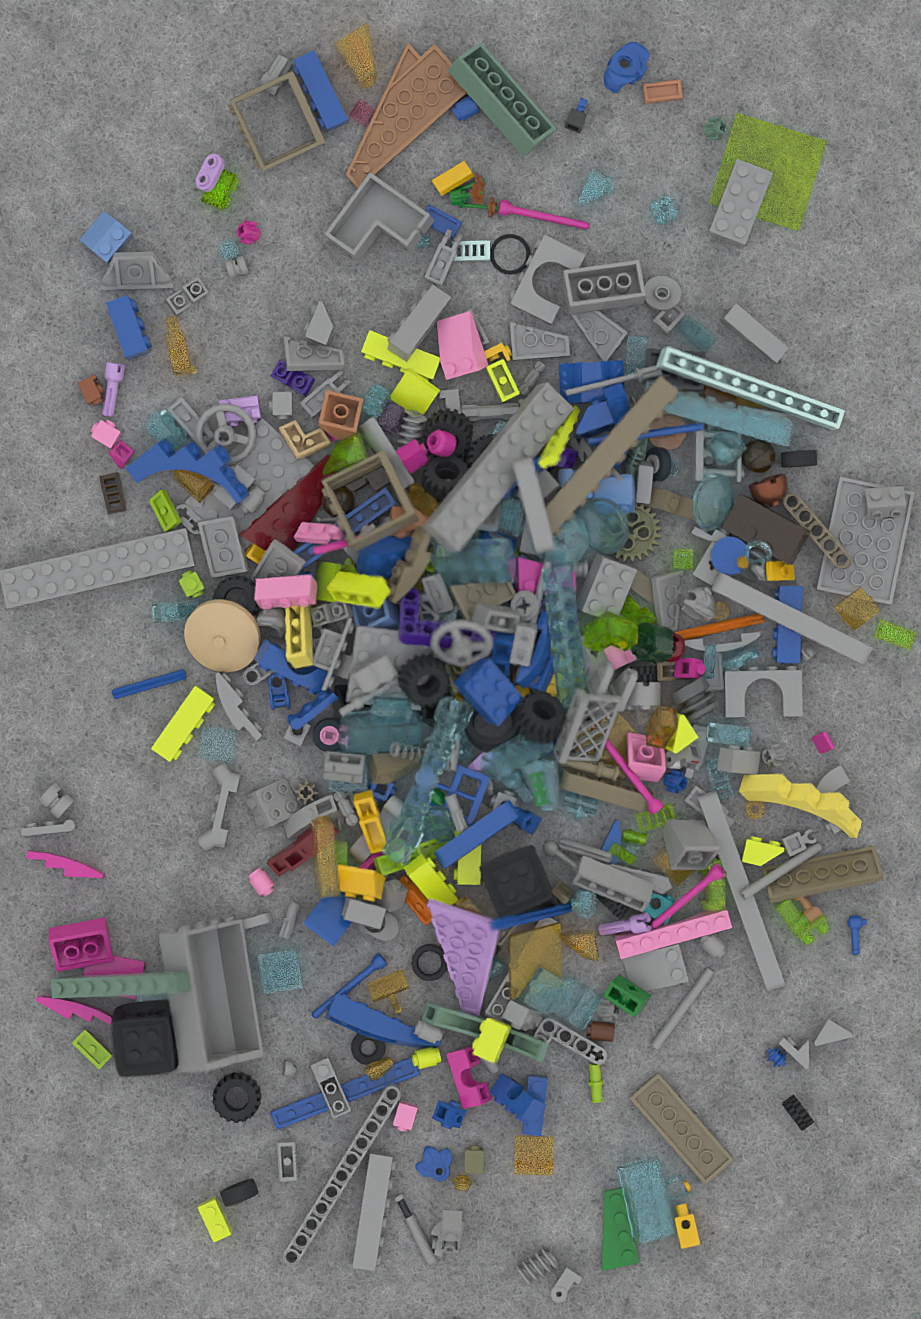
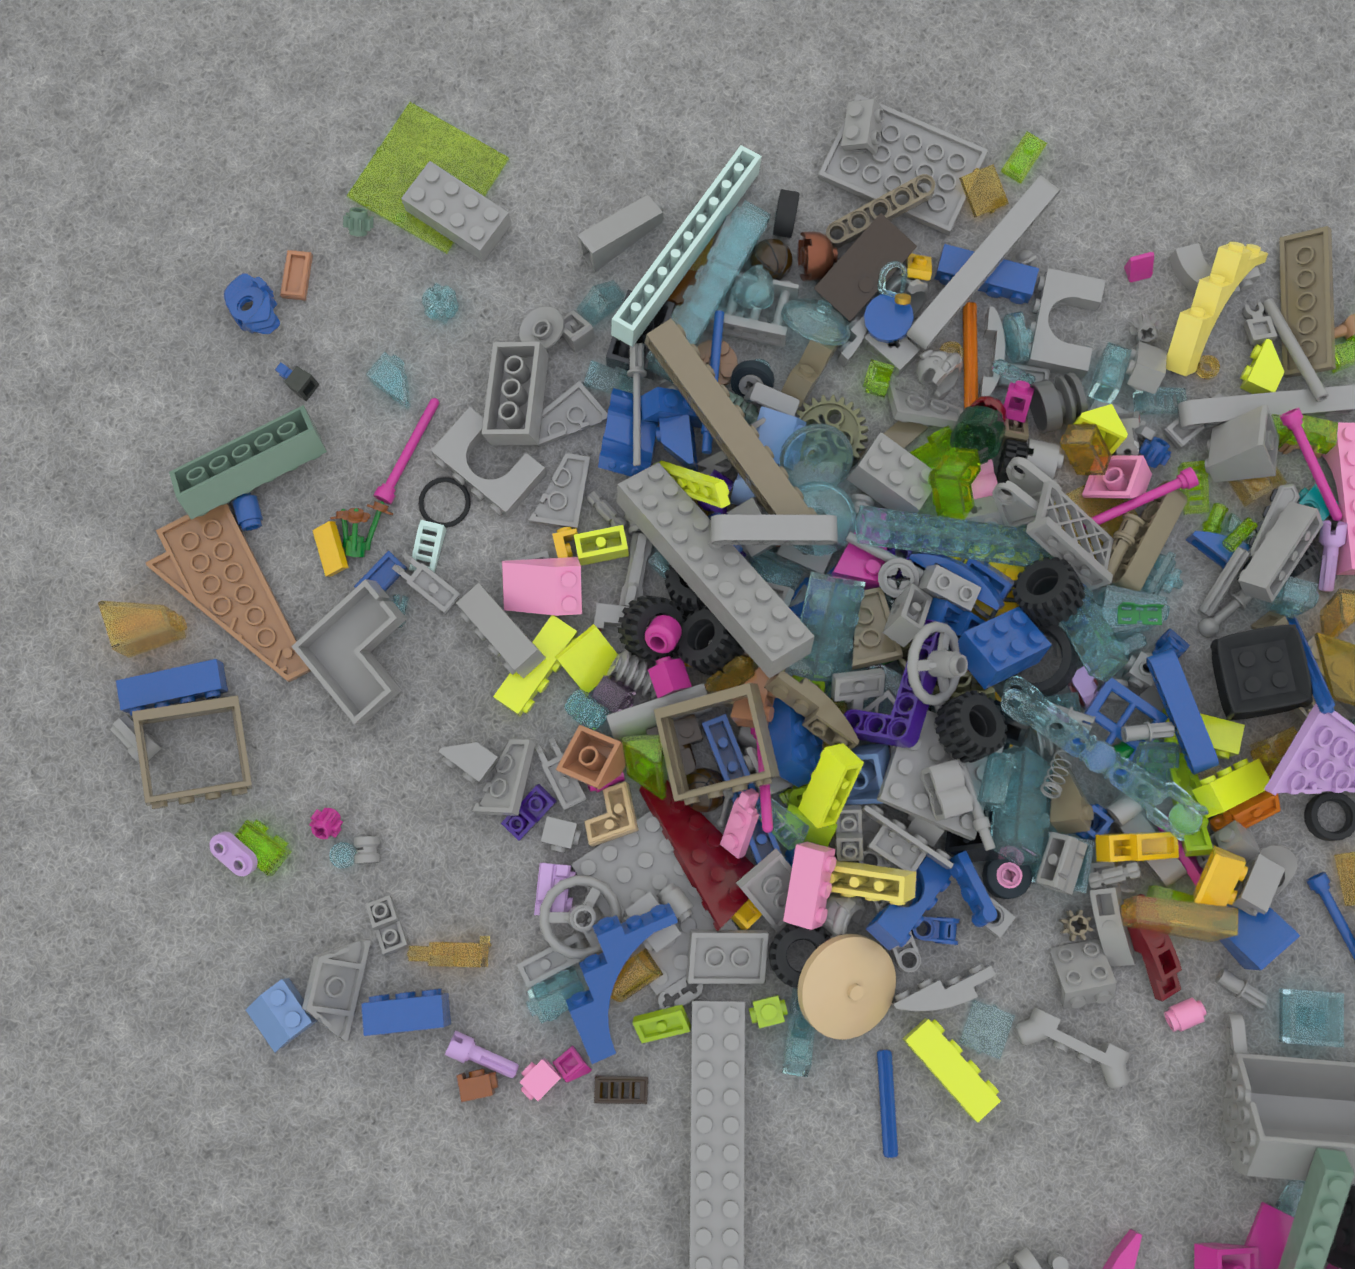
camera: 70 degrees left, 10 degrees down
(324, 565) = (788, 828): none -> clear light blue slope
(362, 112) = (215, 641): clear pink slope -> none

